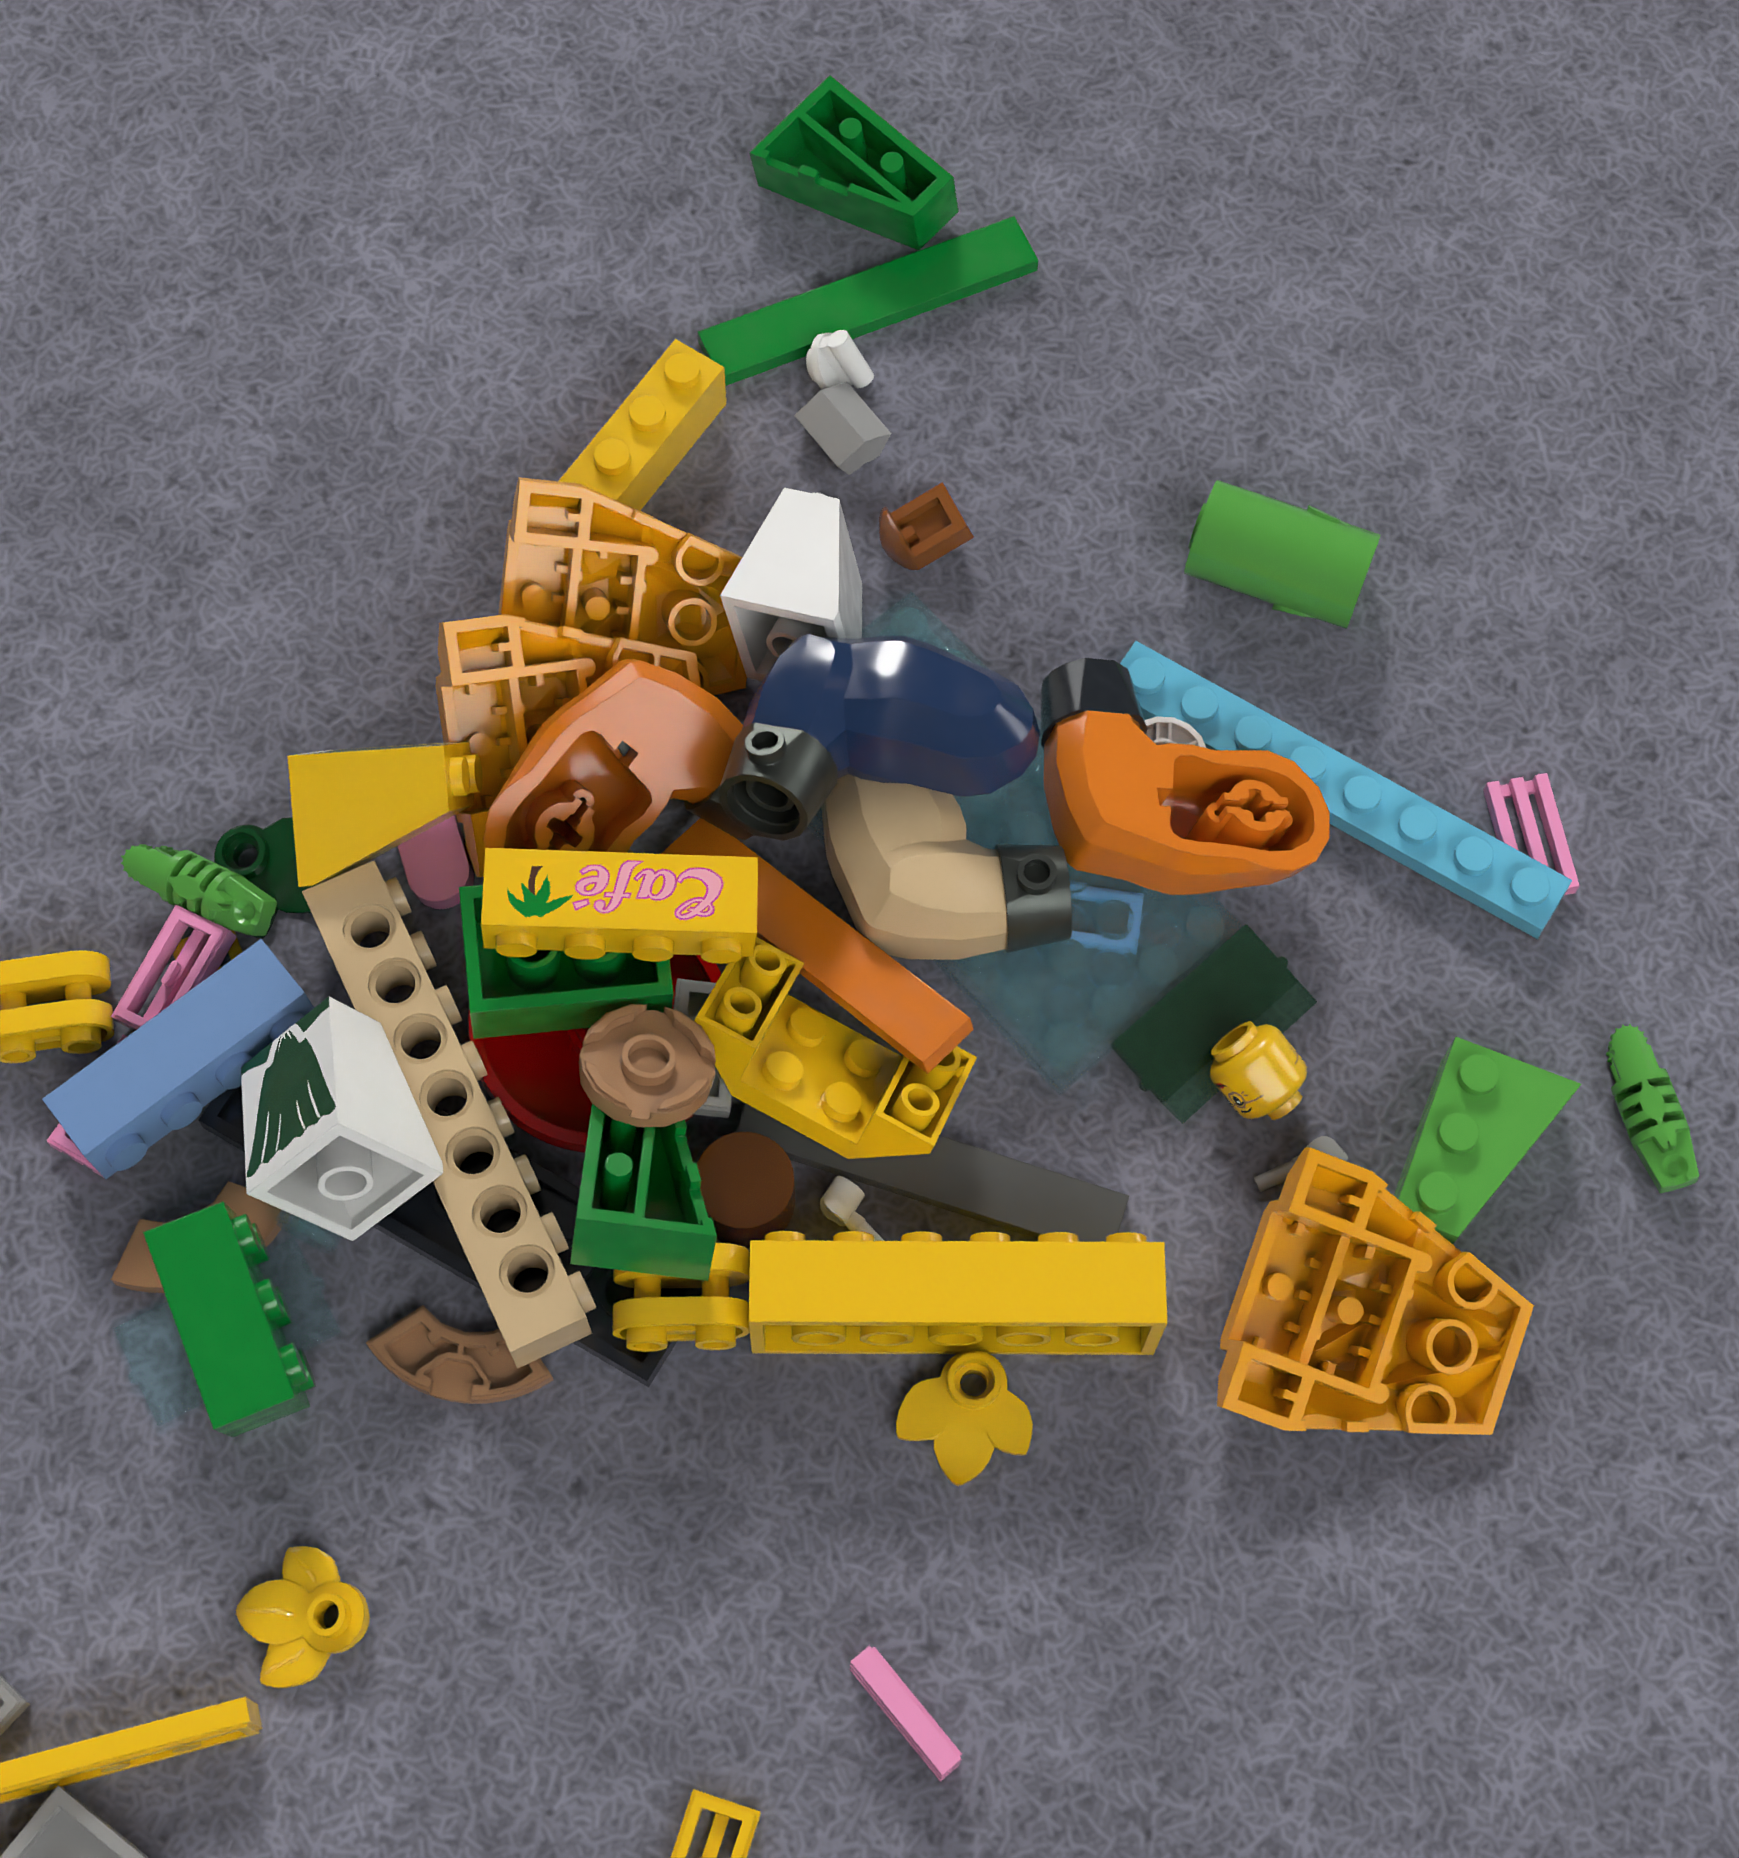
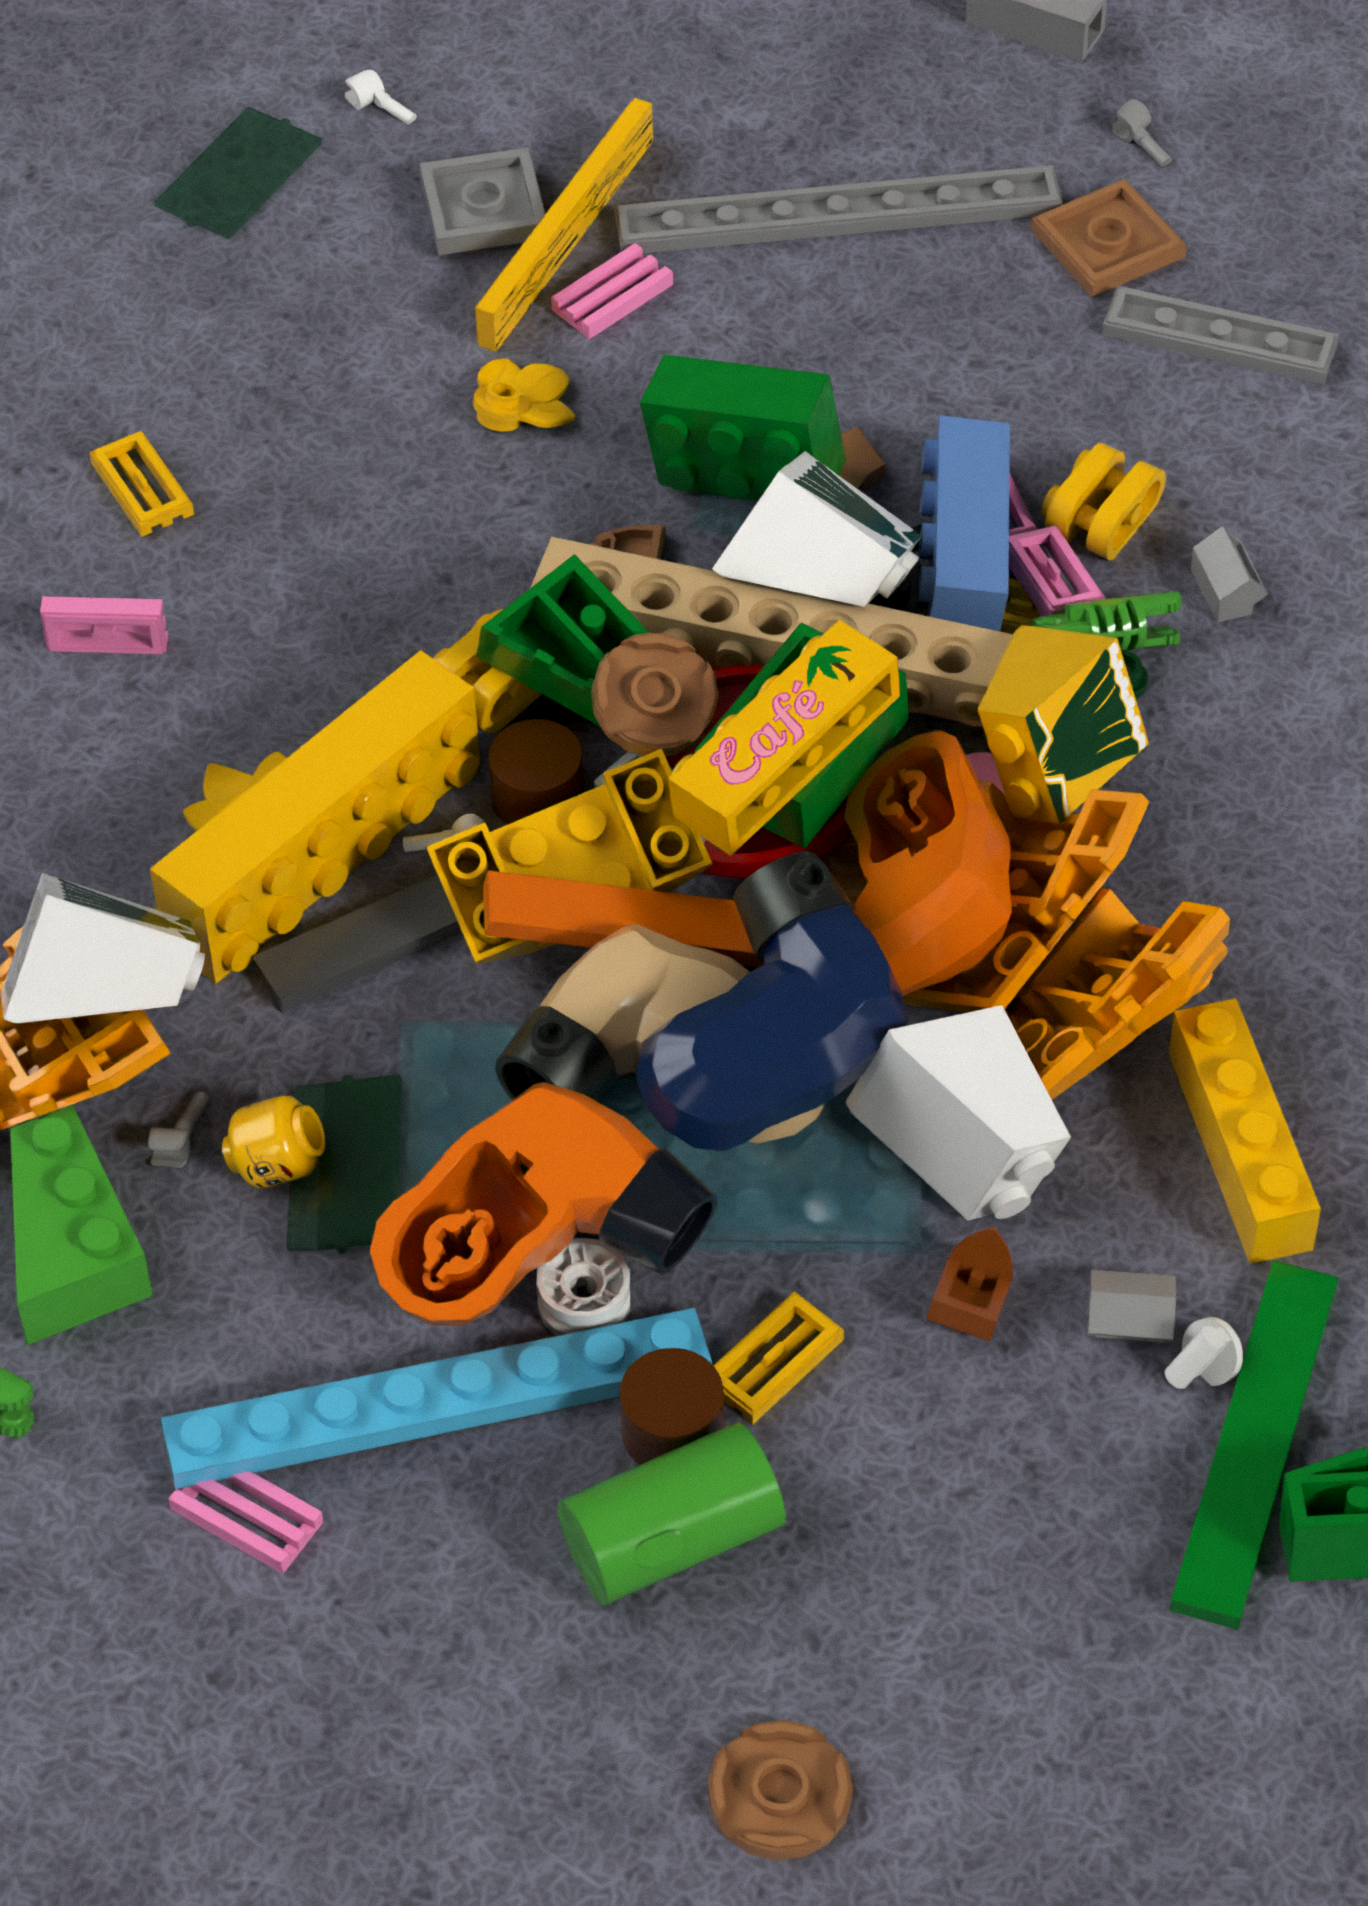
camera: 135 degrees right, 15 degrees down
(35, 1651) = (606, 284): none -> bright pink tile
(61, 853) = (1226, 575): none -> light grey piece
(1086, 638) = (756, 1406): none -> yellow tile
(1204, 621) = (669, 1402): none -> reddish brown piece
(1286, 1280) = (96, 956): none -> white slope
(1369, 391) = (778, 1815): none -> medium nougat tile

